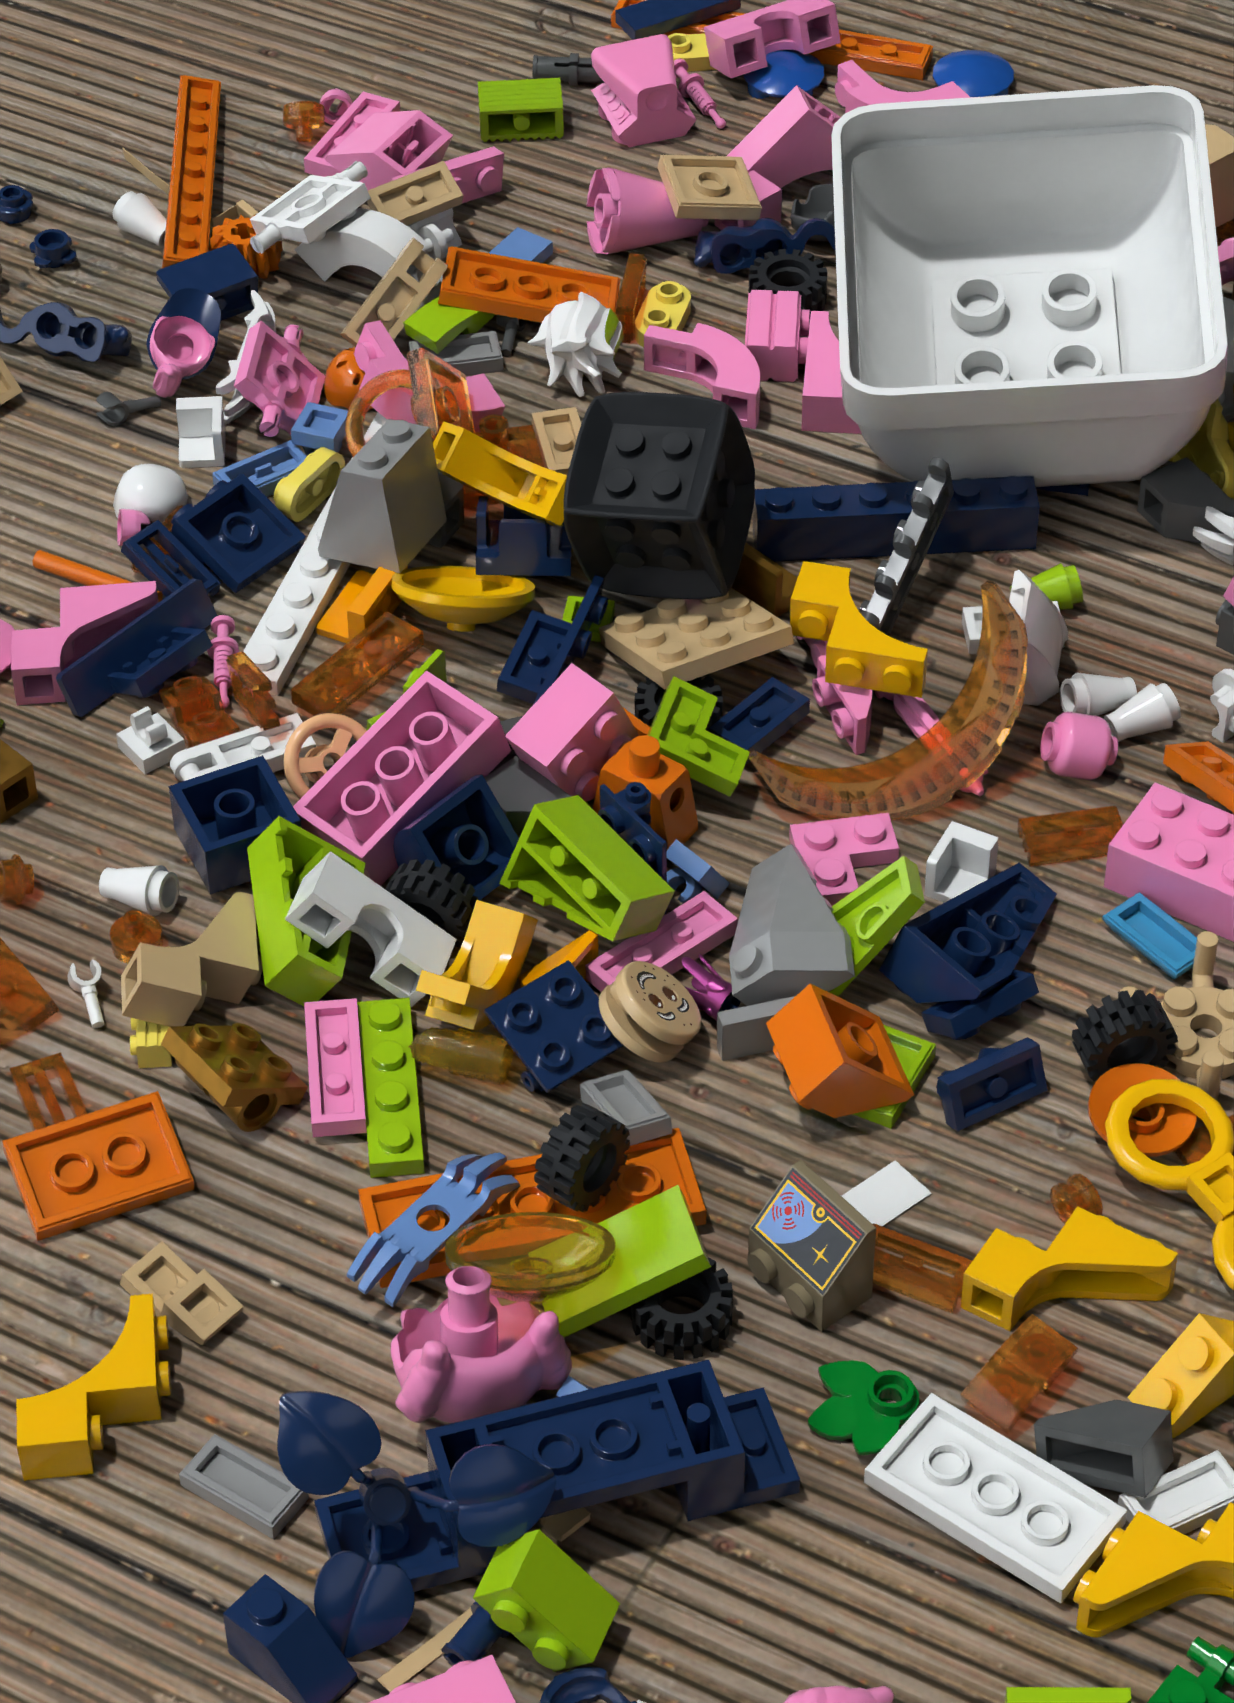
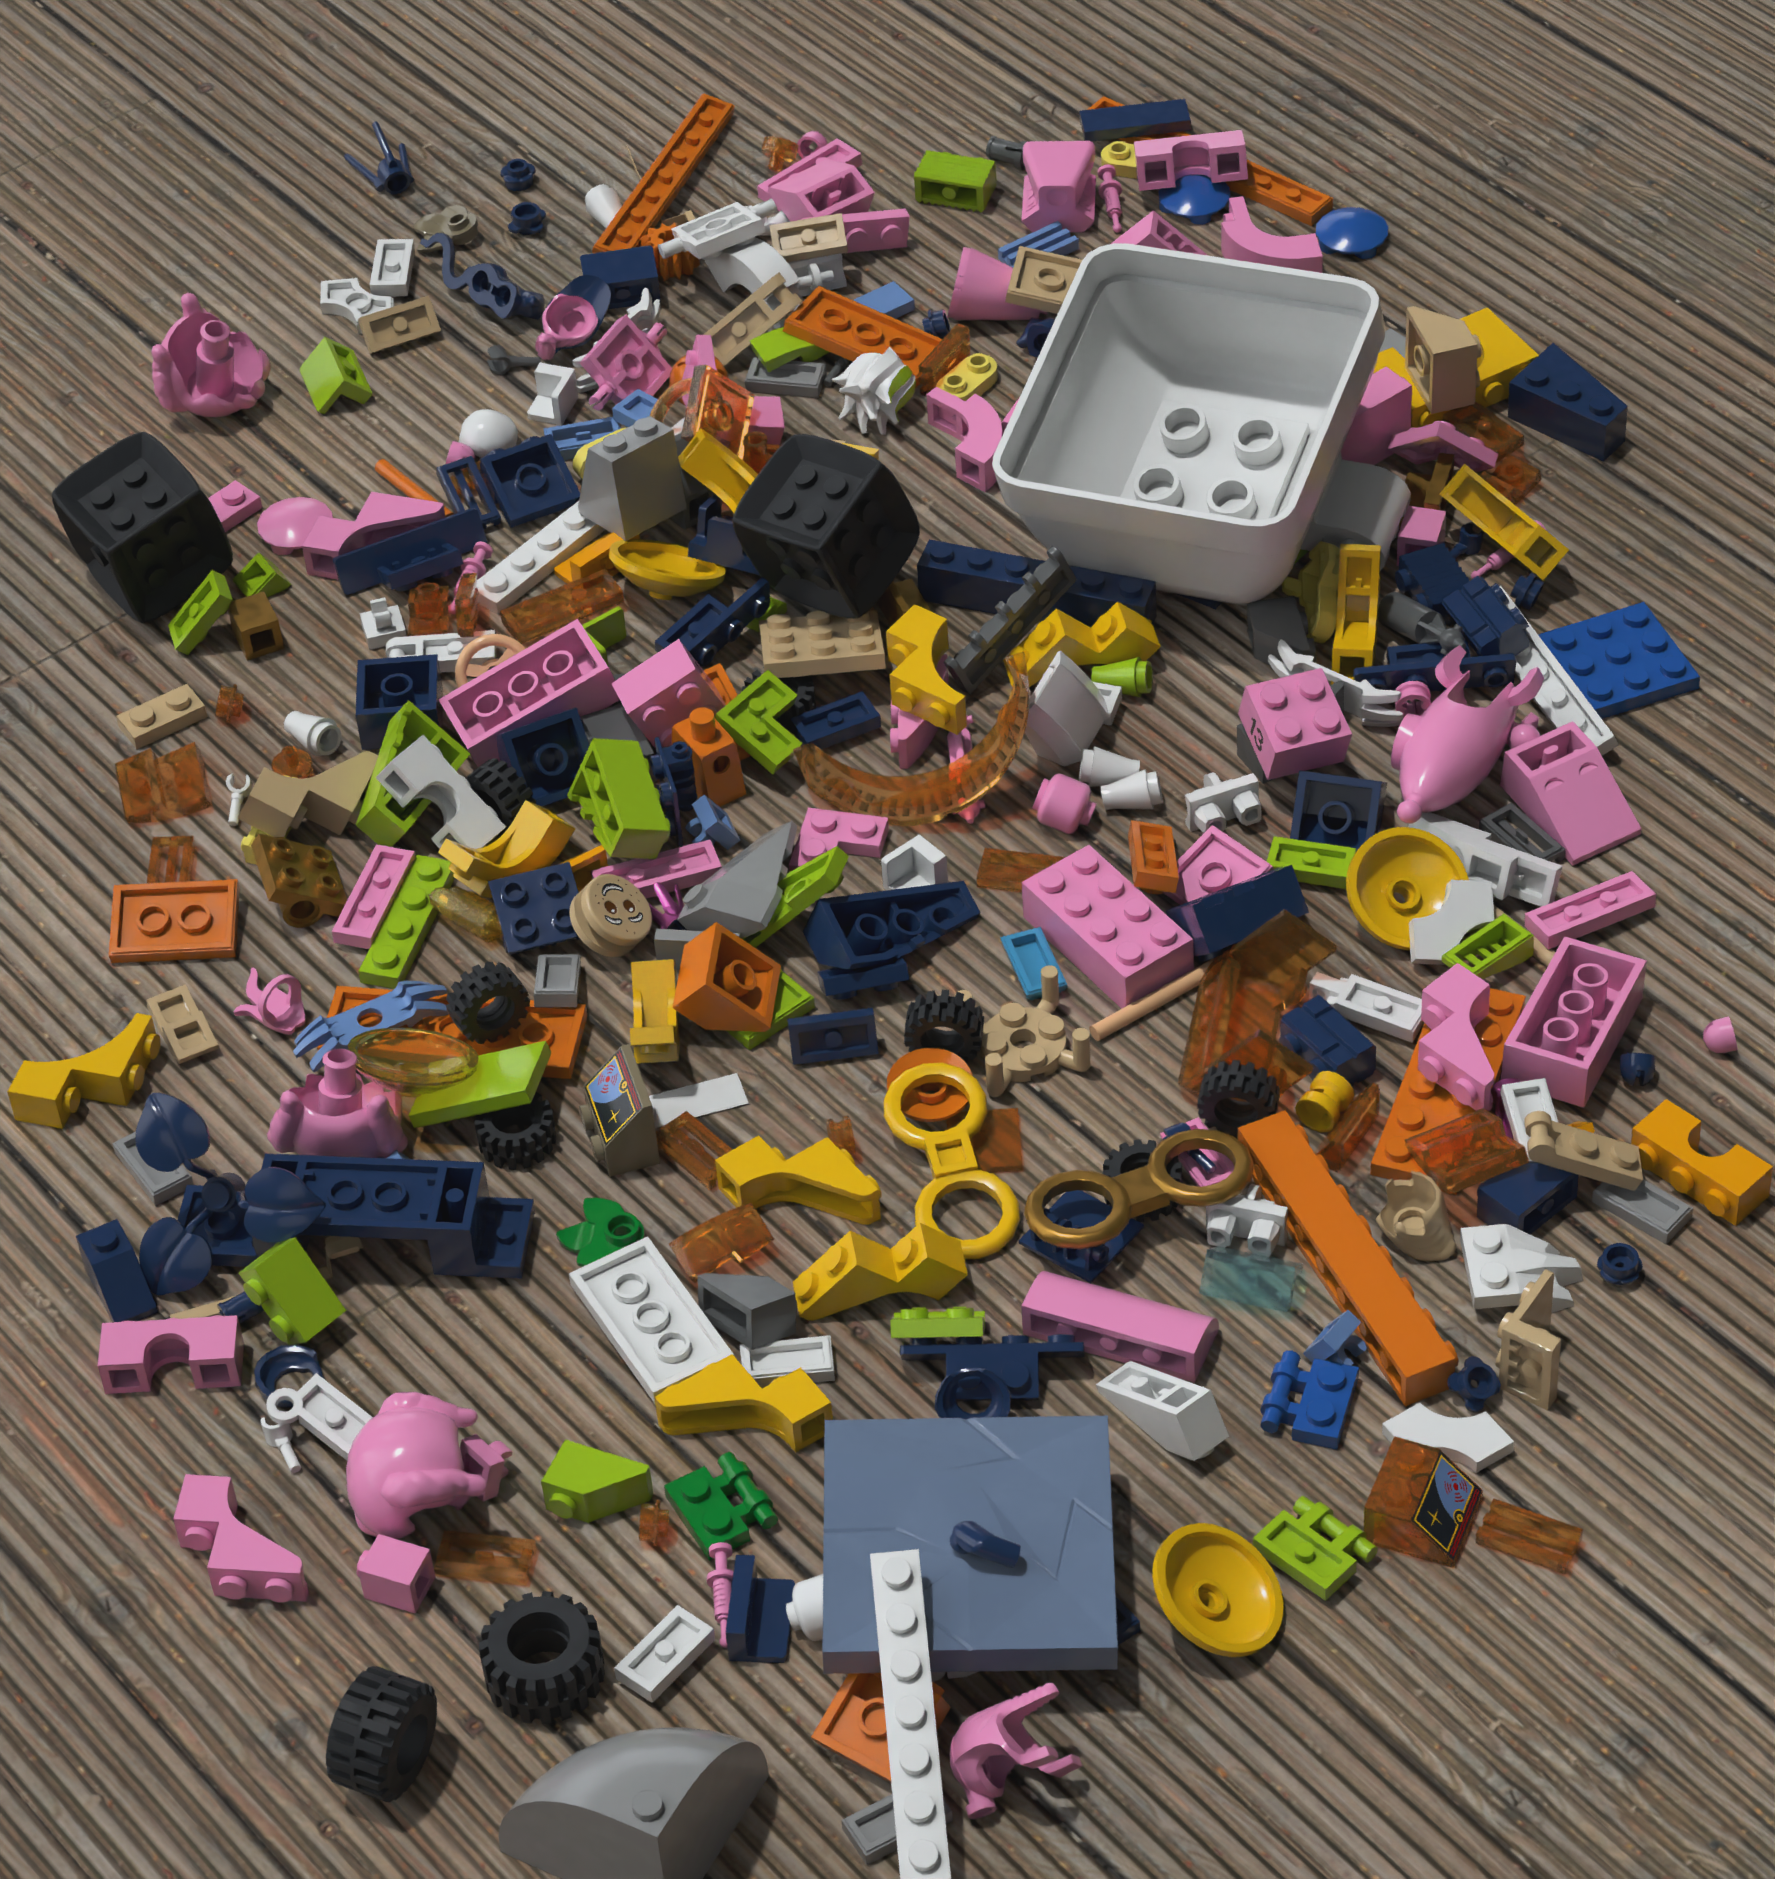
camera: 25 degrees right, 0 degrees up
(285, 1238) = (272, 1006): none -> bright pink piece
(595, 260) = (936, 323): none -> dark blue plate
(646, 155) = (1046, 239): none -> medium blue tile
(769, 1115) = (655, 1021): none -> yellow arch
(967, 563) = (1113, 638): none -> yellow arch

